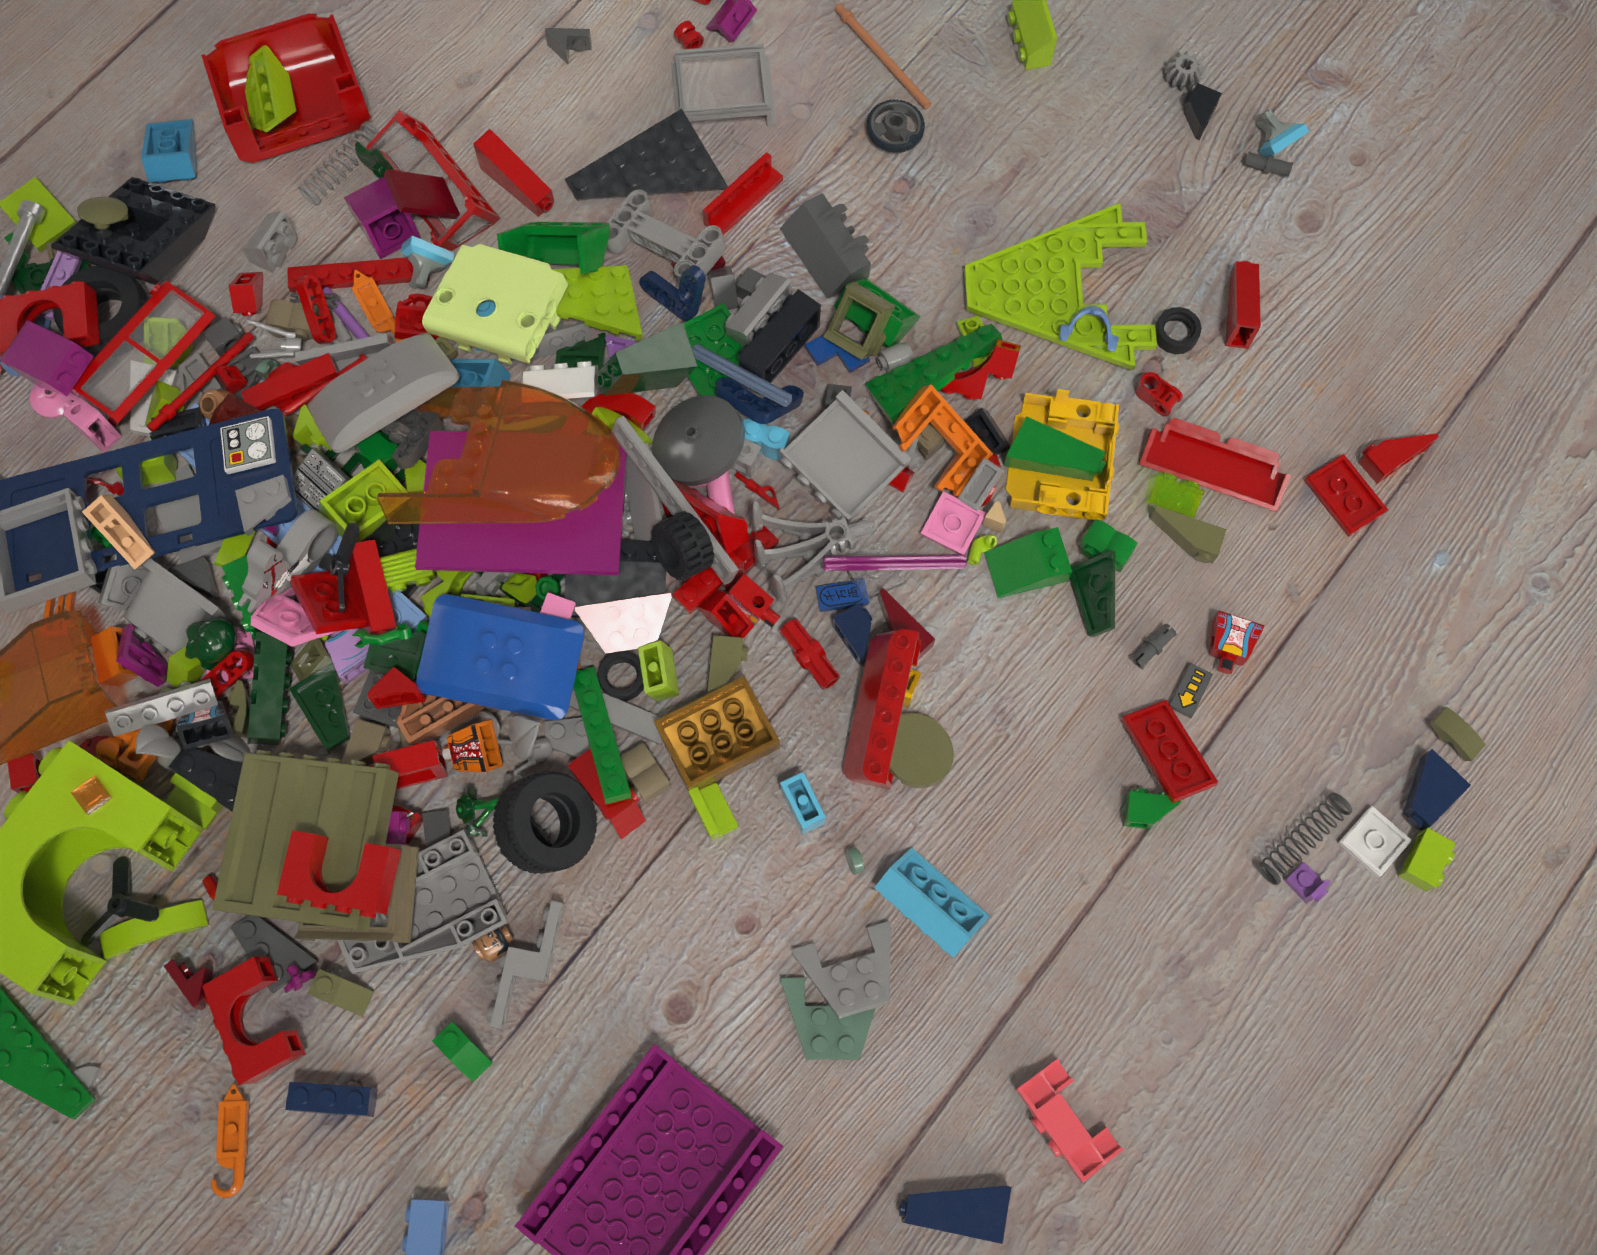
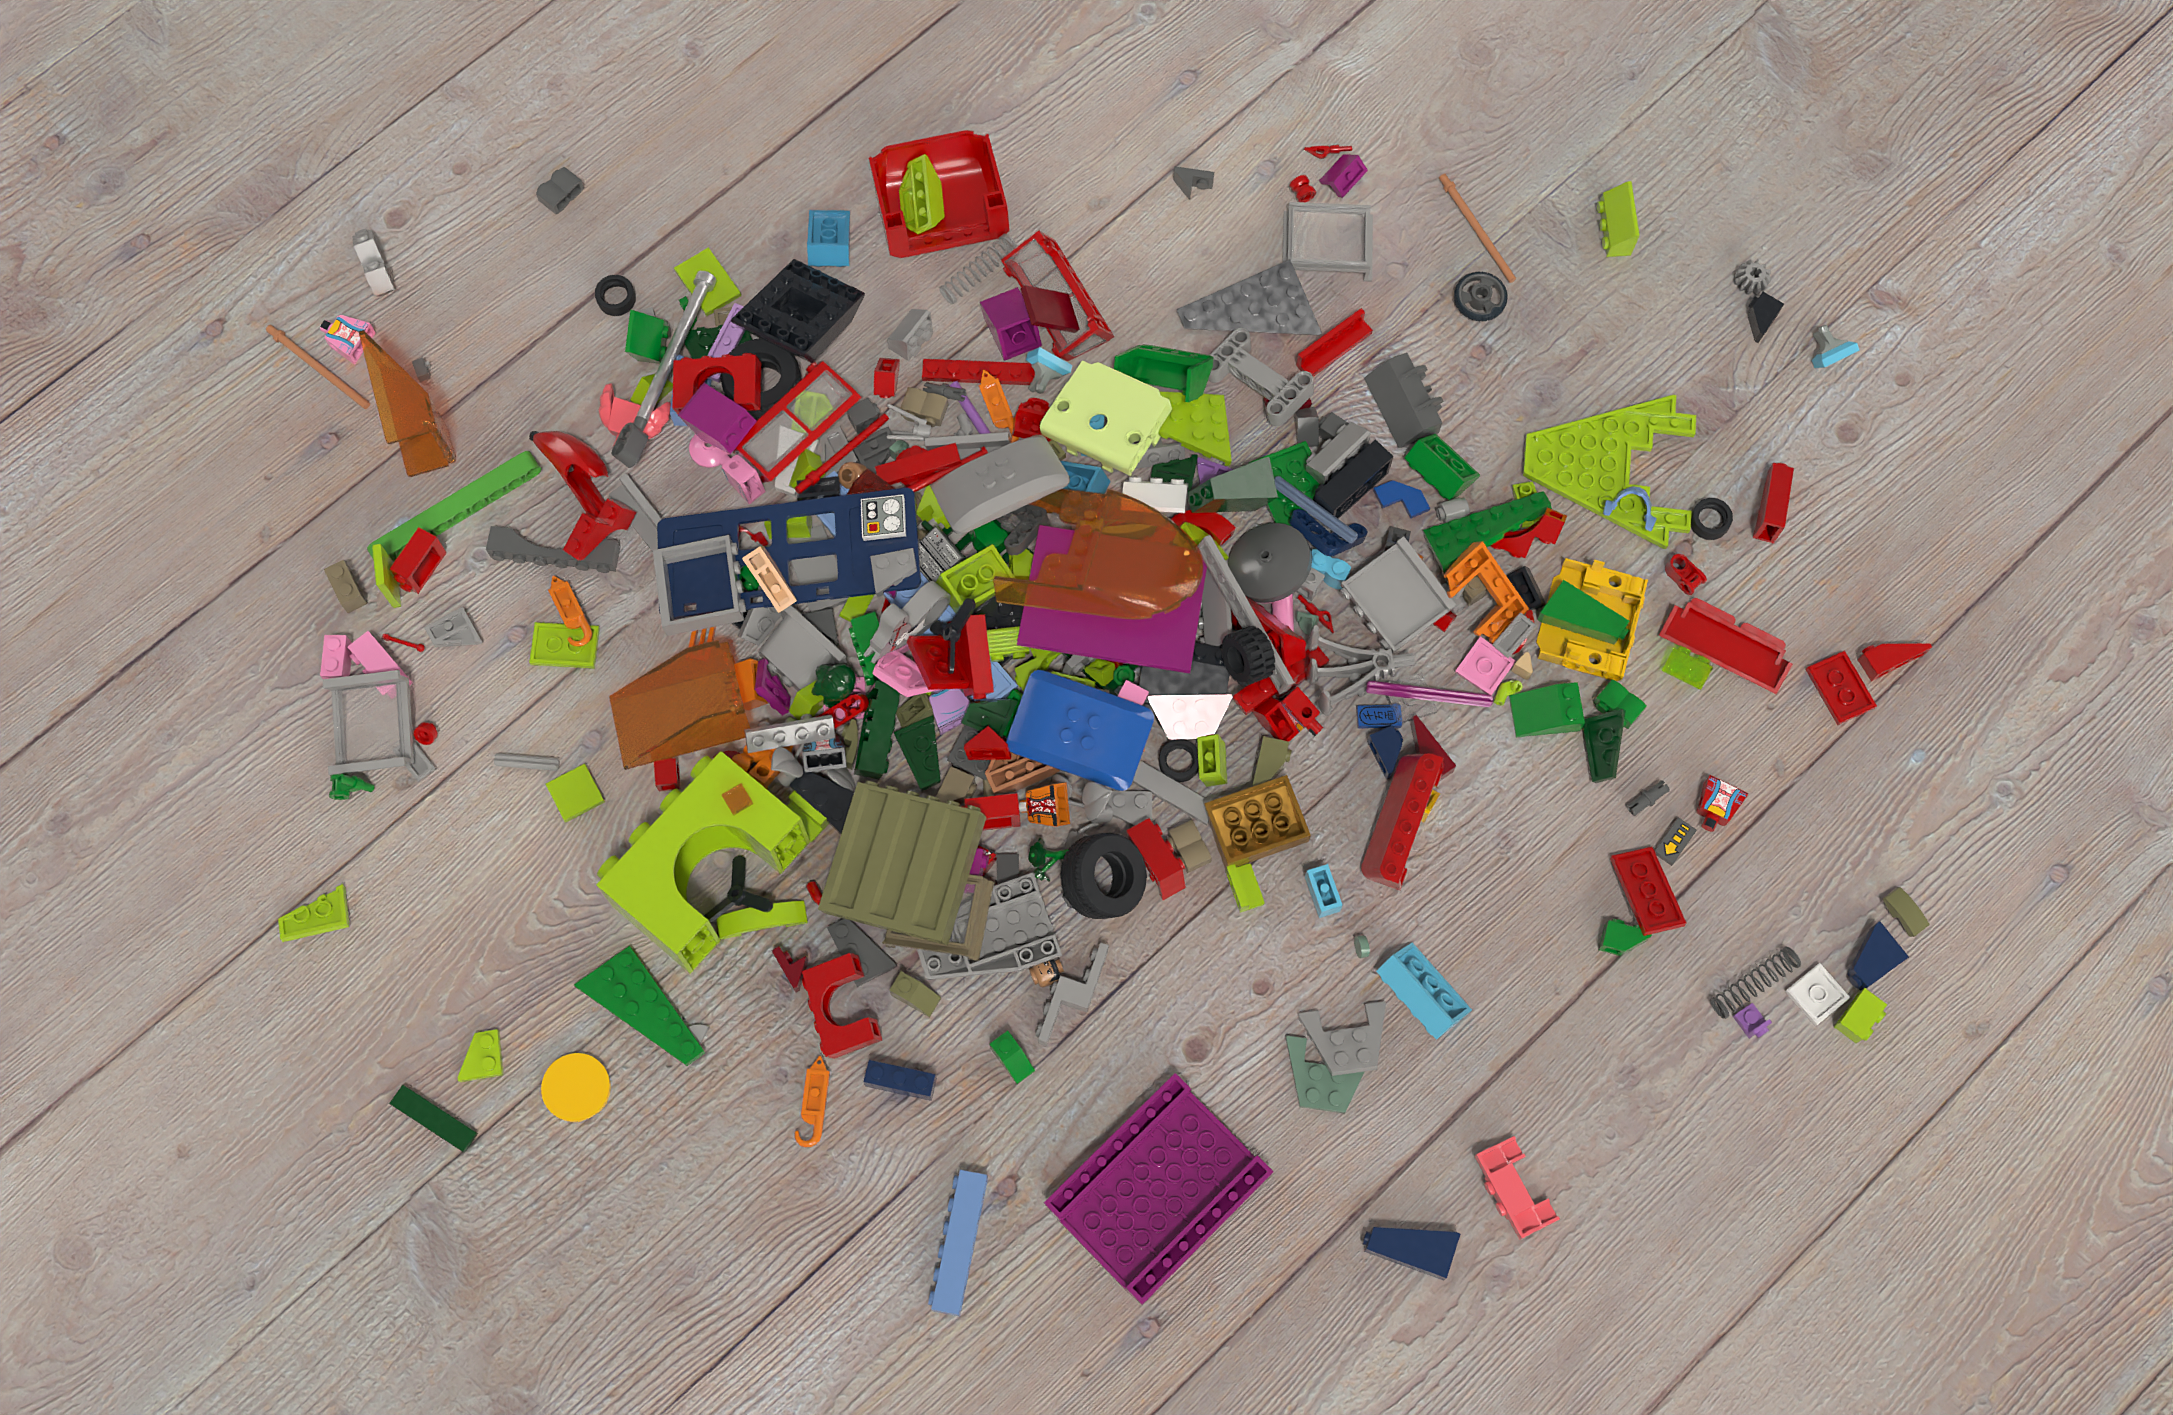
camera: 10 degrees right, 0 degrees up
(102, 211) = (773, 292): olive dish -> none
(231, 378) = (867, 453): red slope -> none
(298, 978) = (880, 977): magenta plant -> none
(307, 304) = (942, 382): red beam -> none
(369, 891) = (954, 913): red arch -> none
(373, 160) = (1011, 273): dark green plate -> none
(401, 632) = (997, 697): green arm -> none
(512, 173) = (1131, 299): red slope -> none
(600, 736) = (1157, 810): green plate -> none
(657, 288) = (1249, 418): dark blue beam -> none
(747, 499) = (1306, 621): none -> sand green tile
(809, 654) = (1344, 763): red piece -> none
(876, 335) = (1439, 490): olive piece -> none
(921, 751) = (1432, 861): olive tile -> none
(1192, 535) = (1697, 706): olive slope -> none
(1268, 164) = (1818, 374): dark grey pin -> none

